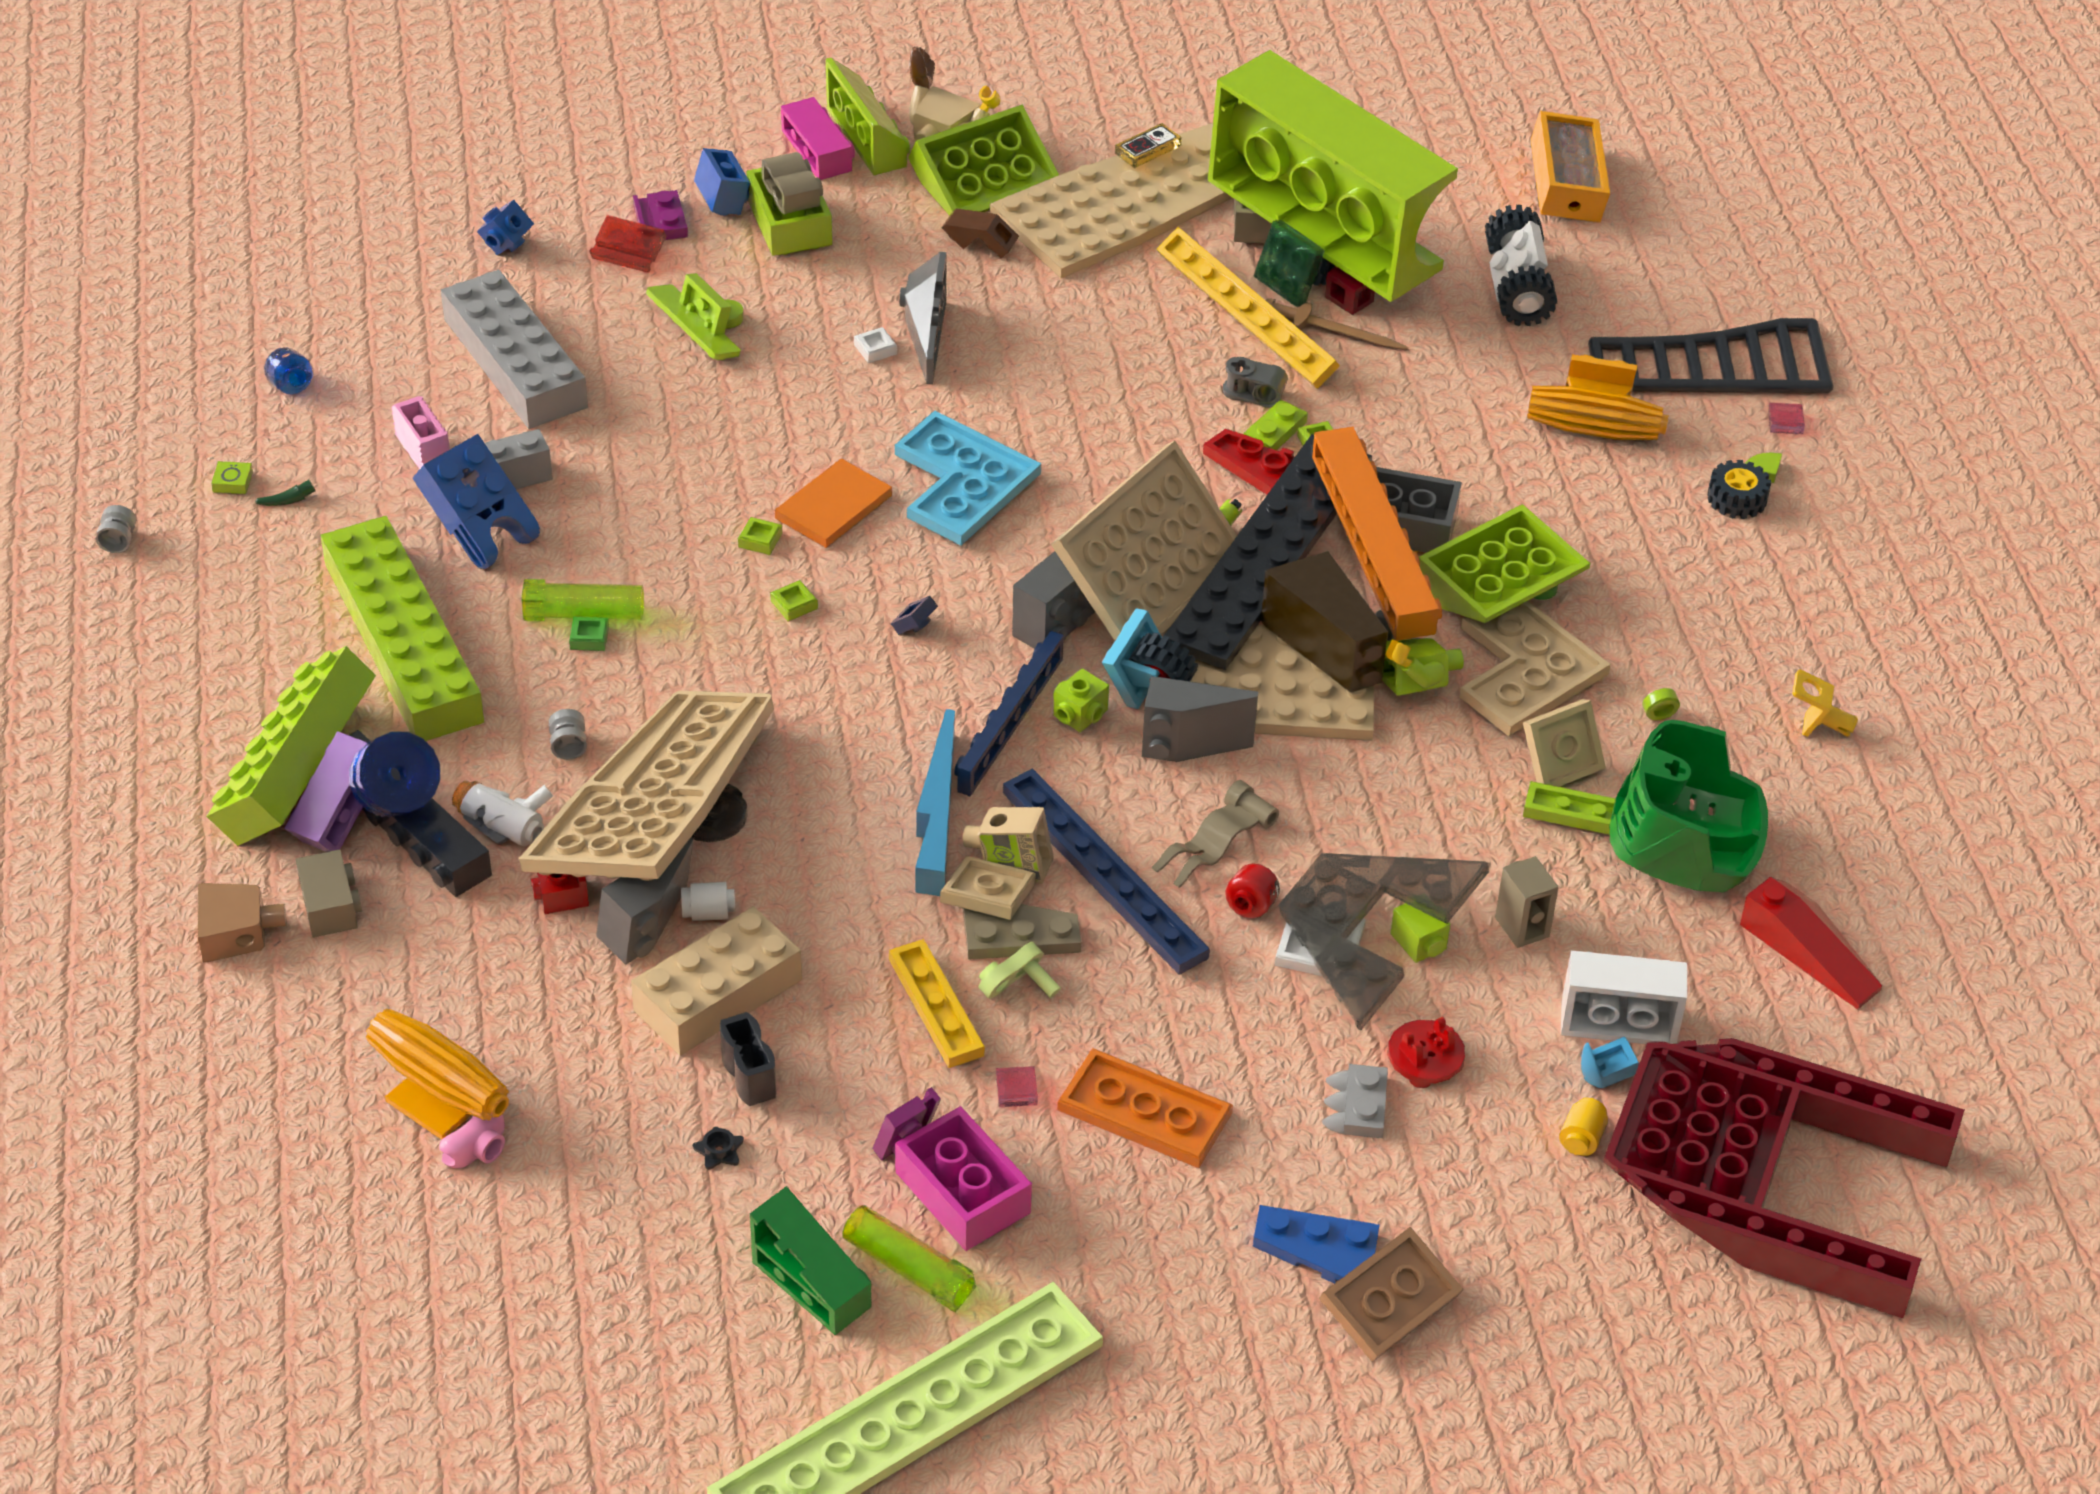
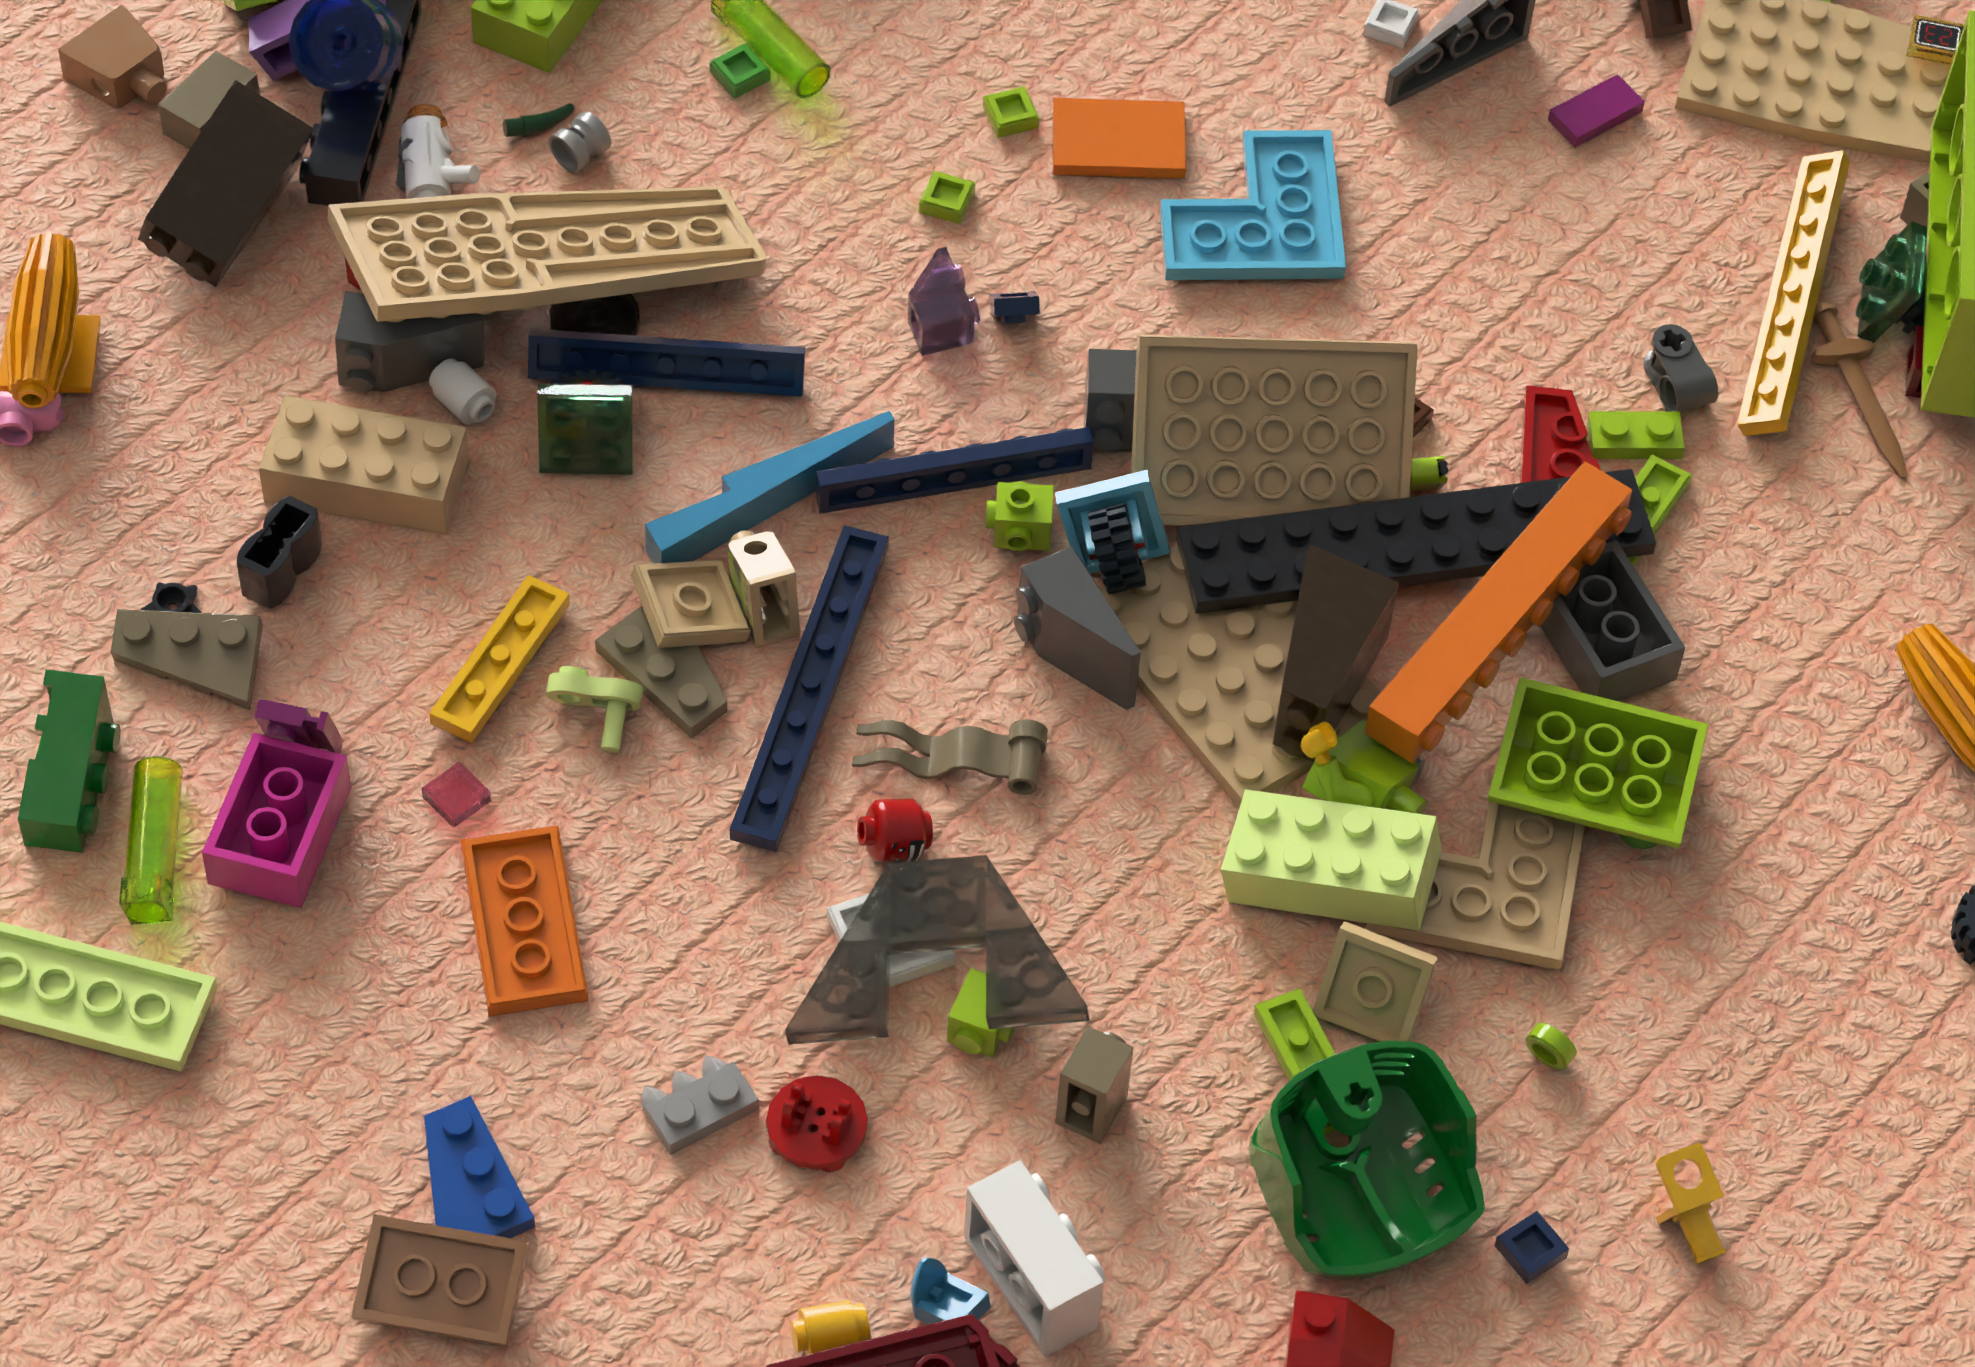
camera: 50 degrees right, 10 degrees up
(420, 911) = (225, 184): none -> dark brown slope
(521, 750) = (533, 124): none -> dark green helmet
(770, 1151) = (197, 648): none -> dark tan wing
(788, 794) = (669, 361): none -> dark blue plate
(803, 851) = (585, 425): none -> clear green plate
(880, 647) = (939, 307): none -> clear purple slope
(1032, 306) = (1596, 110): none -> magenta tile
(1462, 710) = (1332, 859): none -> yellowish green brick
(1785, 791) = (1531, 1247): none -> dark blue plate

